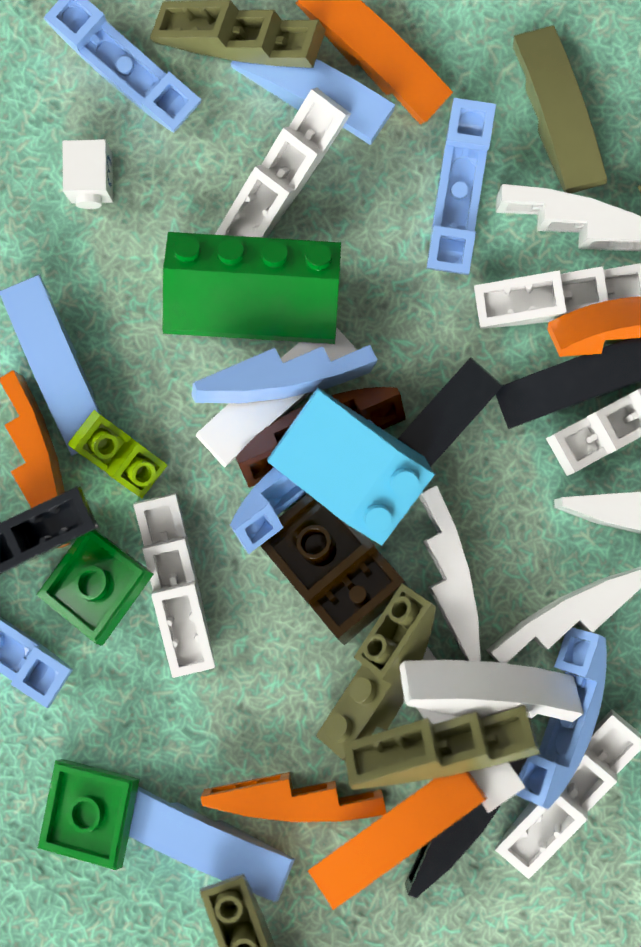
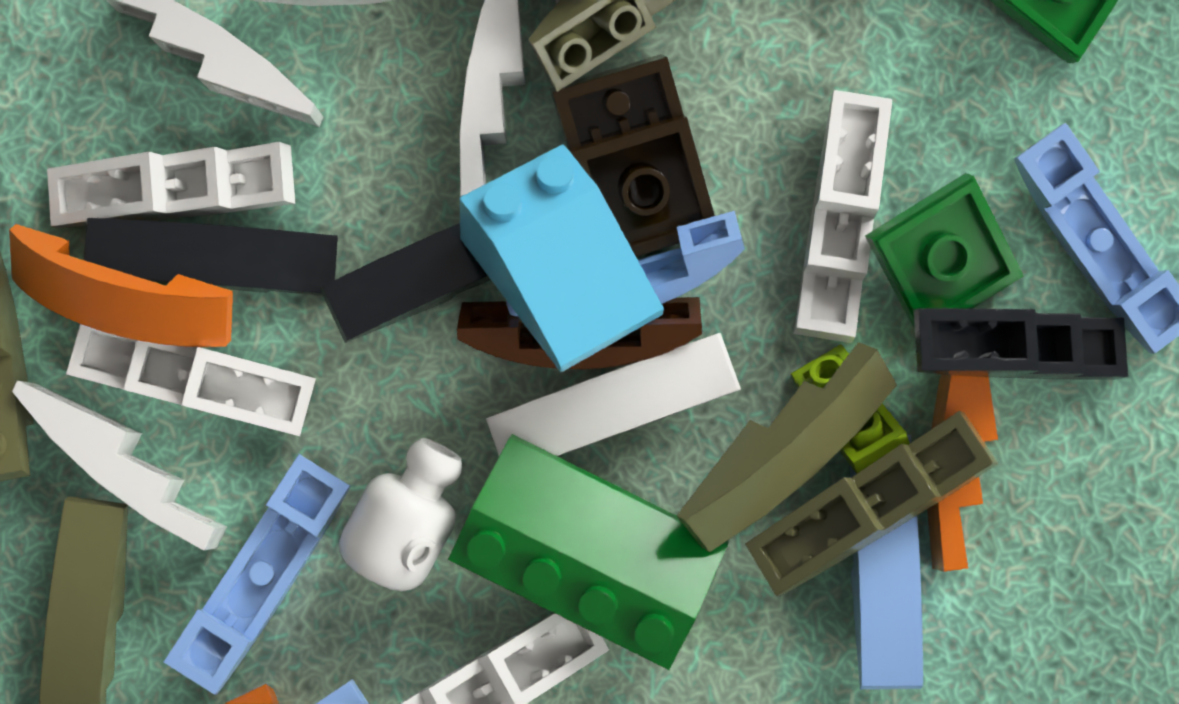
camera: 155 degrees left, 0 degrees up
(77, 393) = (870, 503): none -> olive slope
(155, 388) = (775, 461): none -> olive slope
(268, 378) = (616, 416): light blue slope -> none
(382, 259) = (403, 519): none -> white piece

